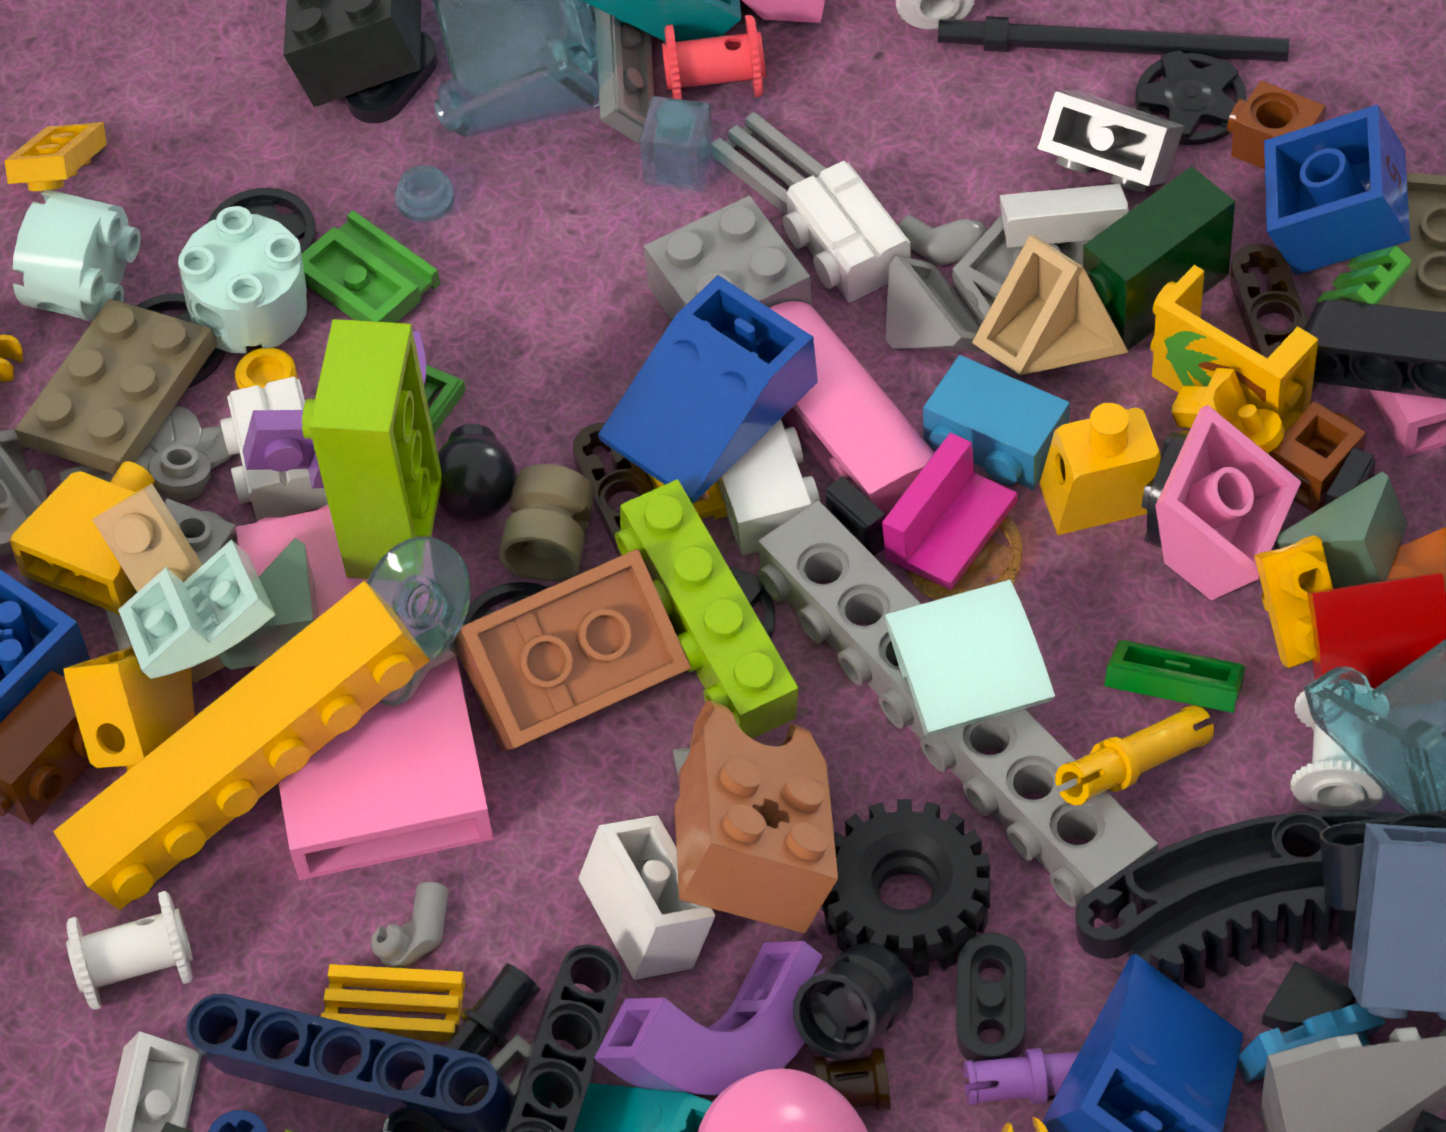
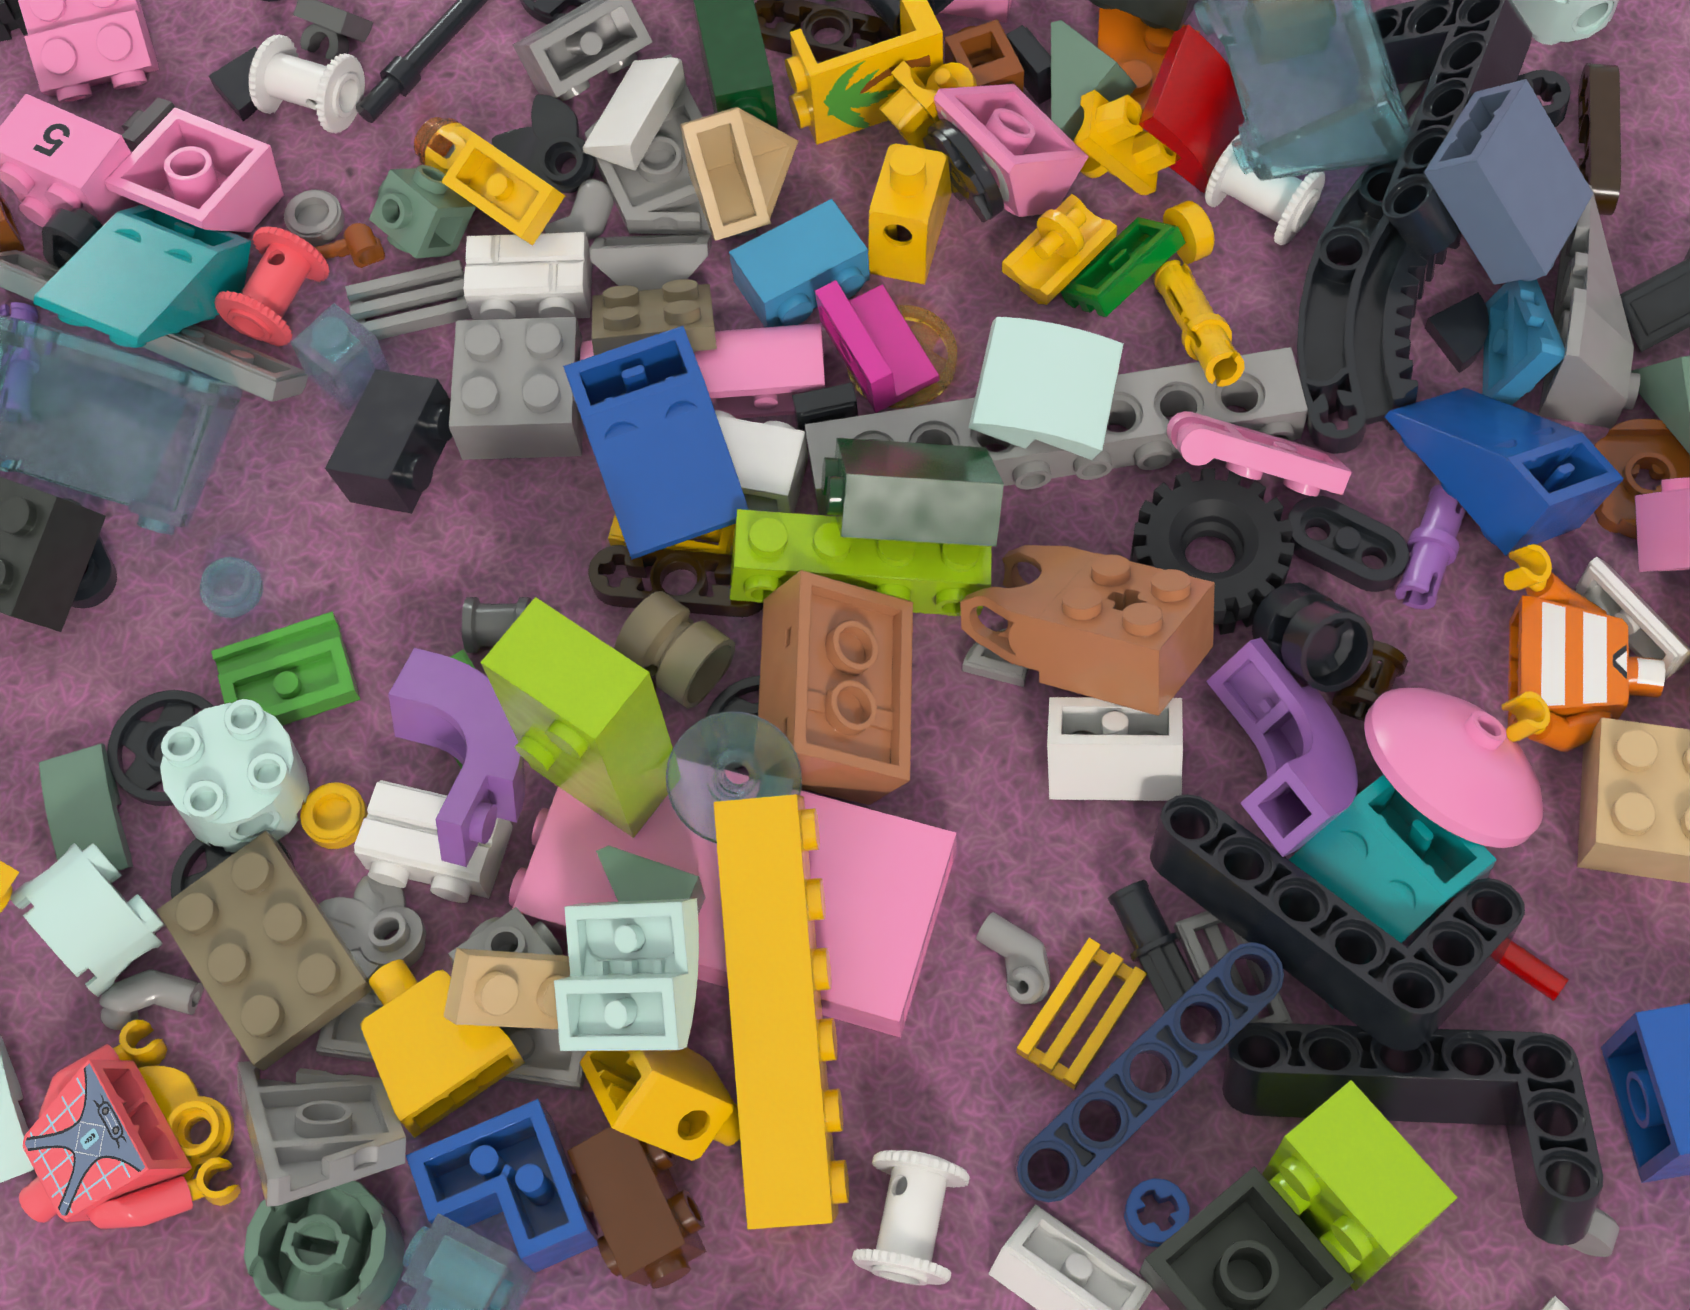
camera: 60 degrees left, 10 degrees up
(35, 326) = (144, 989): none -> light grey arm
(173, 205) = (83, 804): none -> sand green slope
(497, 389) = (487, 623): none -> dark grey bush
(612, 218) = (392, 441): none -> black brick
(779, 600) = (913, 492): none -> brick
(802, 99) = (358, 243): none -> dark orange hand
(811, 55) = (315, 216): none -> light grey tile
(855, 119) = (421, 212): none -> sand green brick
(857, 340) = (630, 315): none -> dark tan plate
(913, 142) = (487, 177): none -> yellow plate
(986, 174) = (549, 144): none -> black plate
(1018, 865) = (1255, 453): none -> bright pink plate
(1149, 610) = (1058, 249): none -> yellow hips
(1252, 711) = (1194, 228): none -> yellow tile

